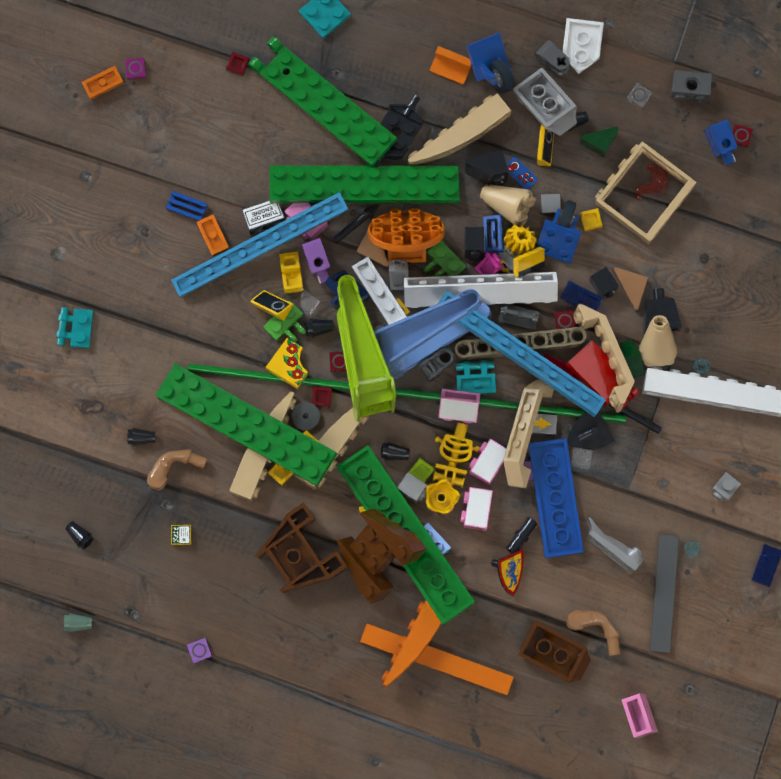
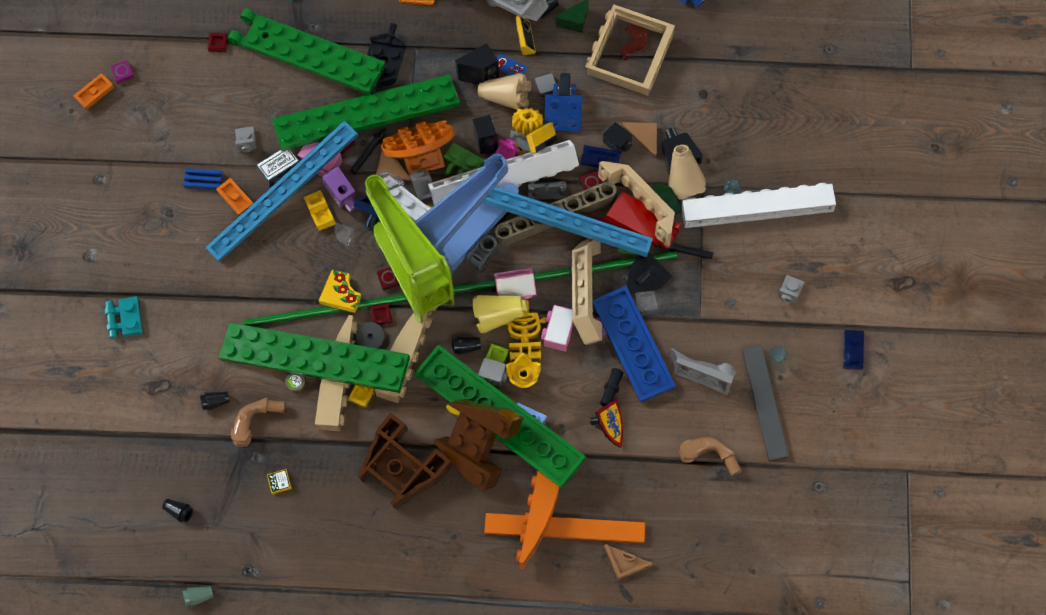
camera: 15 degrees left, 10 degrees down
(199, 650) = (327, 587): medium lavender tile -> none
(221, 442) = (295, 382): none -> tile
(238, 176) = (245, 139): none -> light grey bracket
(272, 304) = (309, 243): slope -> none
(278, 327) = (324, 256): bright green hinge -> none
(317, 327) = (359, 251): black cone -> none
(368, 264) = (391, 180): none -> clear tile
(433, 429) = (497, 310): none -> light yellow cone
(464, 132) = (445, 43): tan slope -> none
(476, 383) = (531, 258): teal plate -> none
(477, 508) = (561, 374): white brick -> none
(482, 709) = (625, 563): none -> medium nougat tile
(494, 249) = (496, 111): blue tile -> none
(545, 424) = (602, 280): light grey tile -> none
(554, 653) = (677, 487): reddish brown slope -> none
(591, 219) = (588, 88): yellow tile -> none
(639, 715) = (779, 522): bright pink brick -> none

